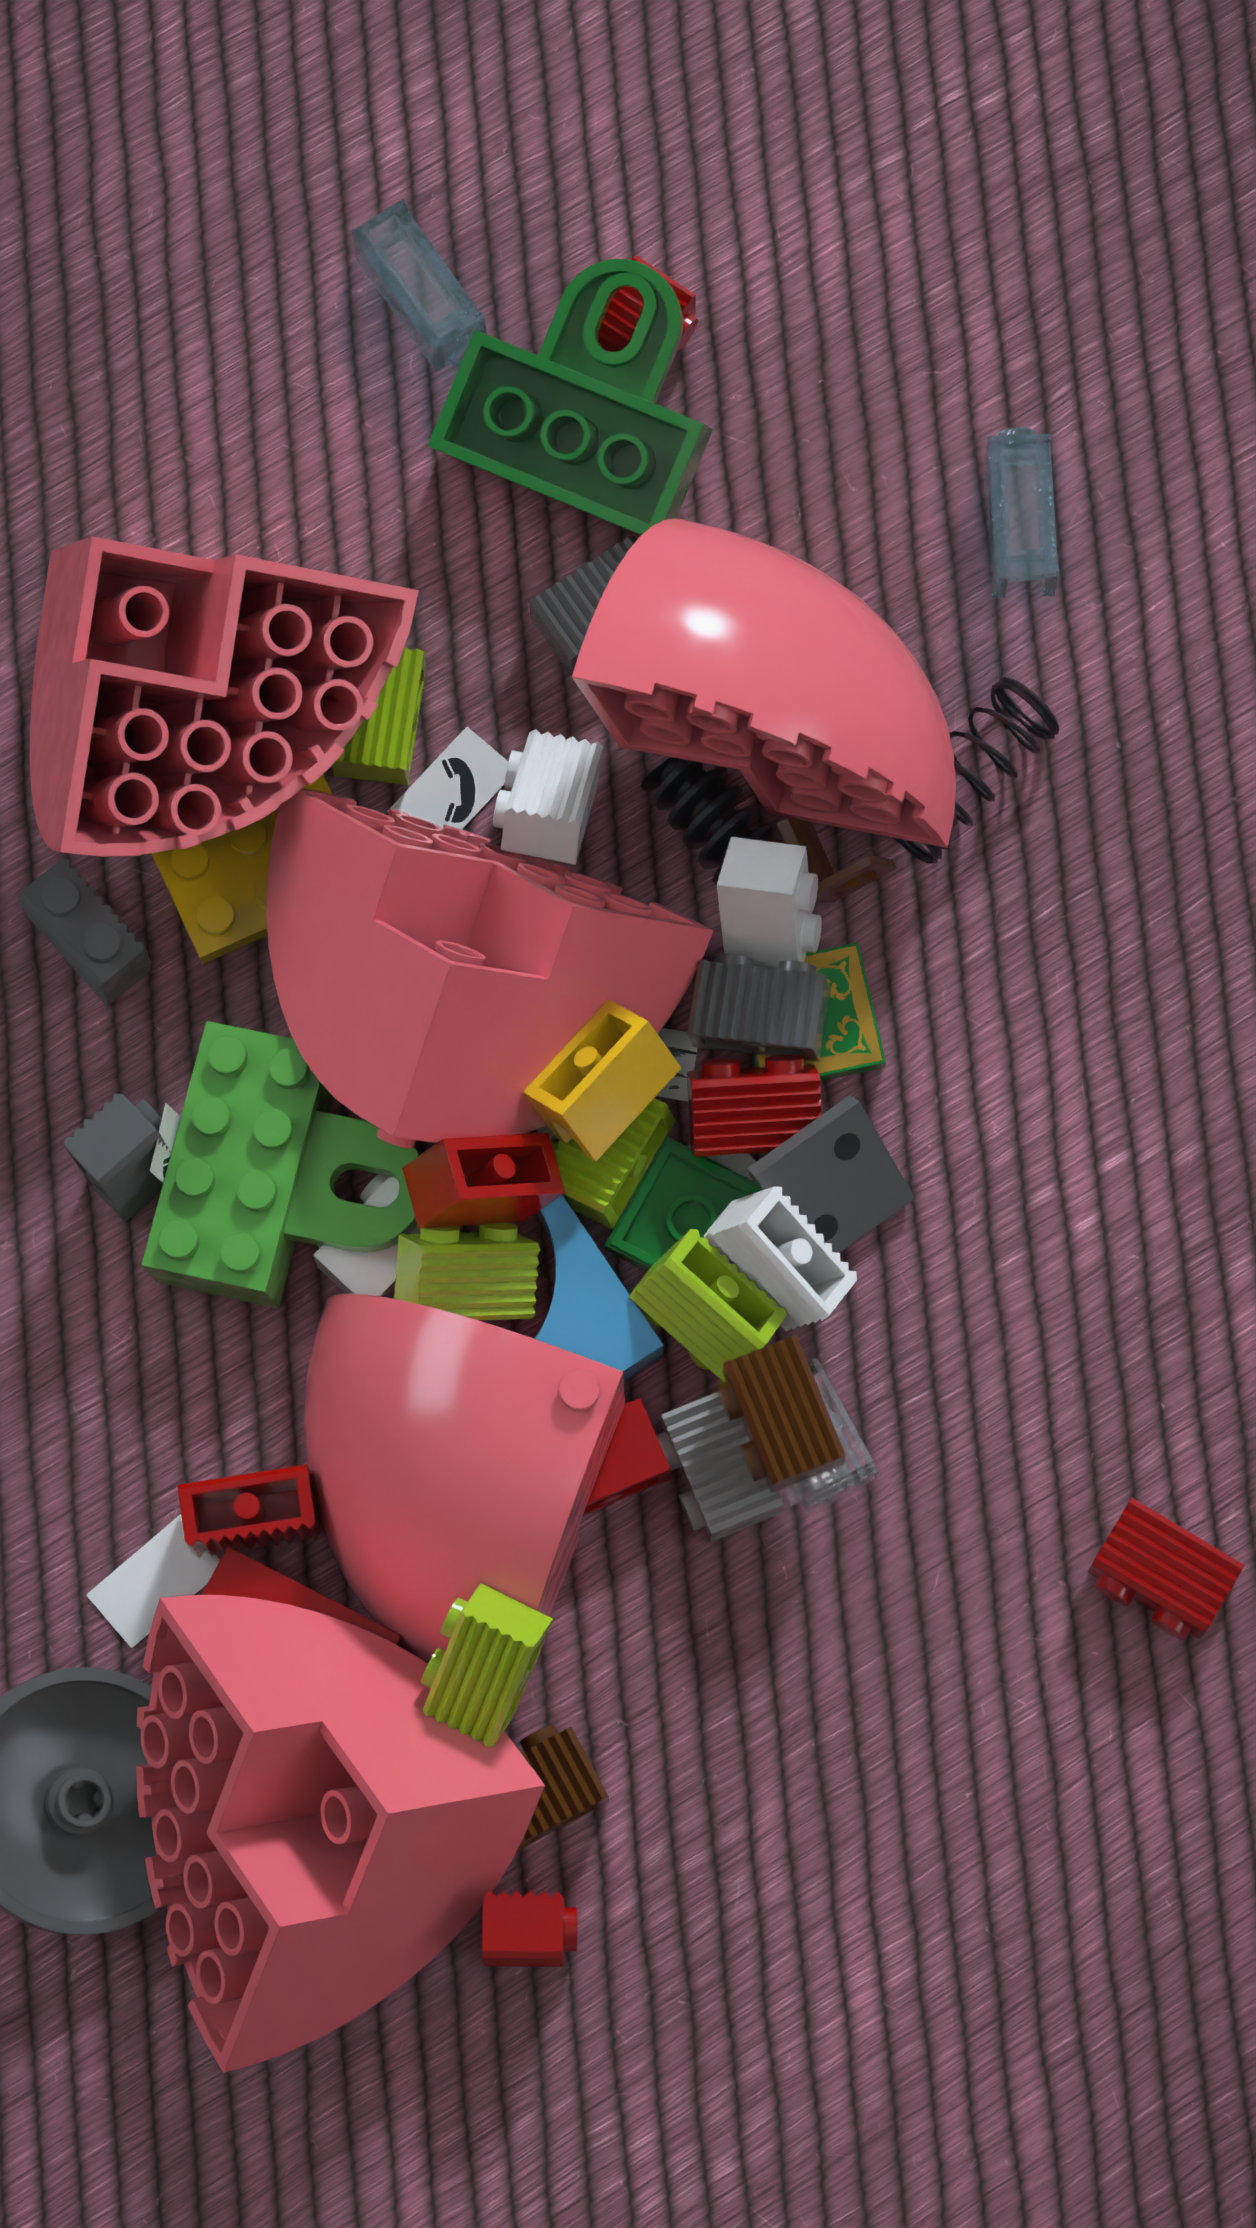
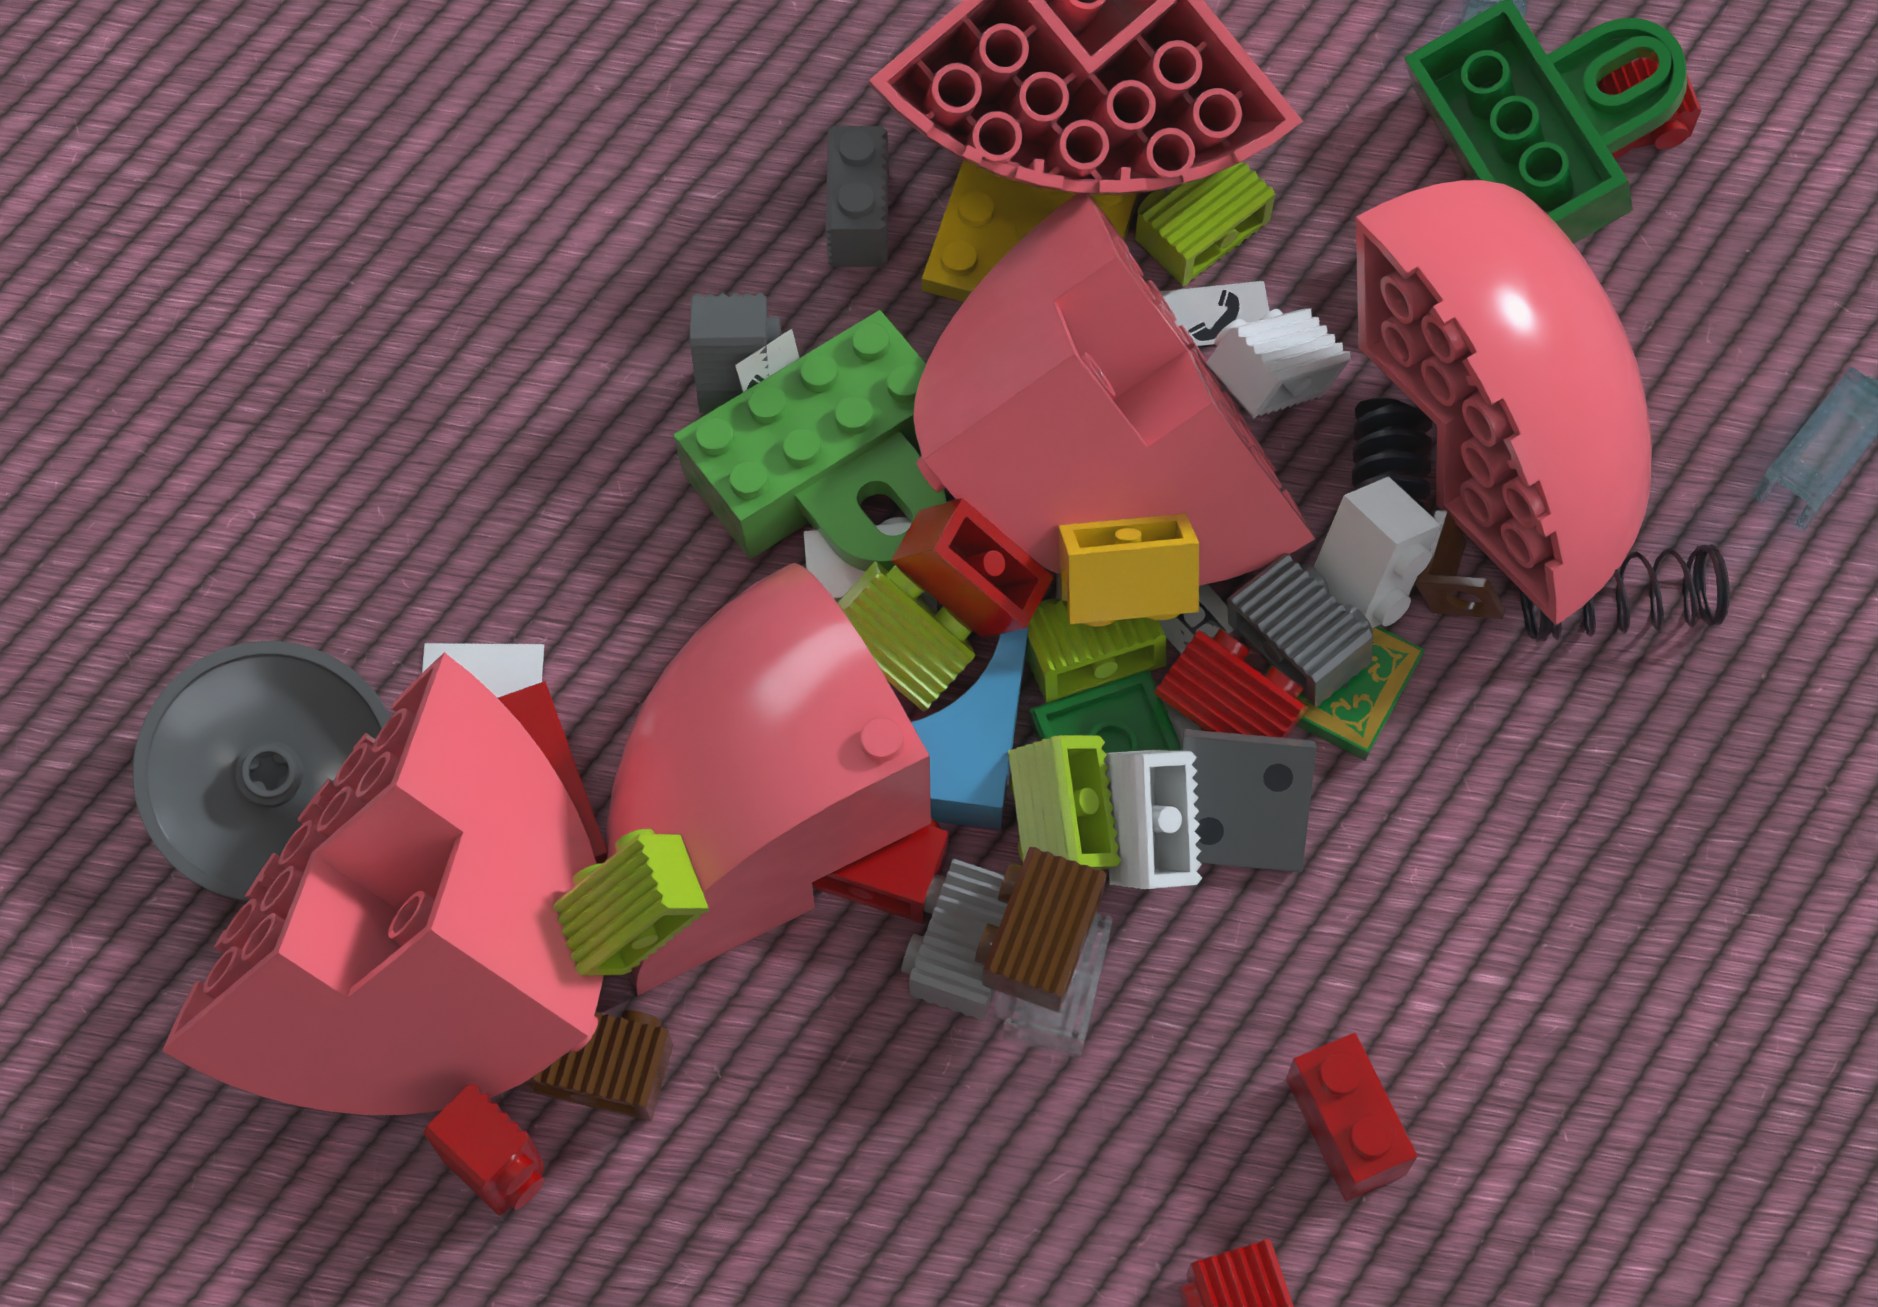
camera: 40 degrees right, 10 degrees down
(249, 1510) = (585, 670): red brick -> none
(1109, 1356) = (1350, 1116): none -> red brick

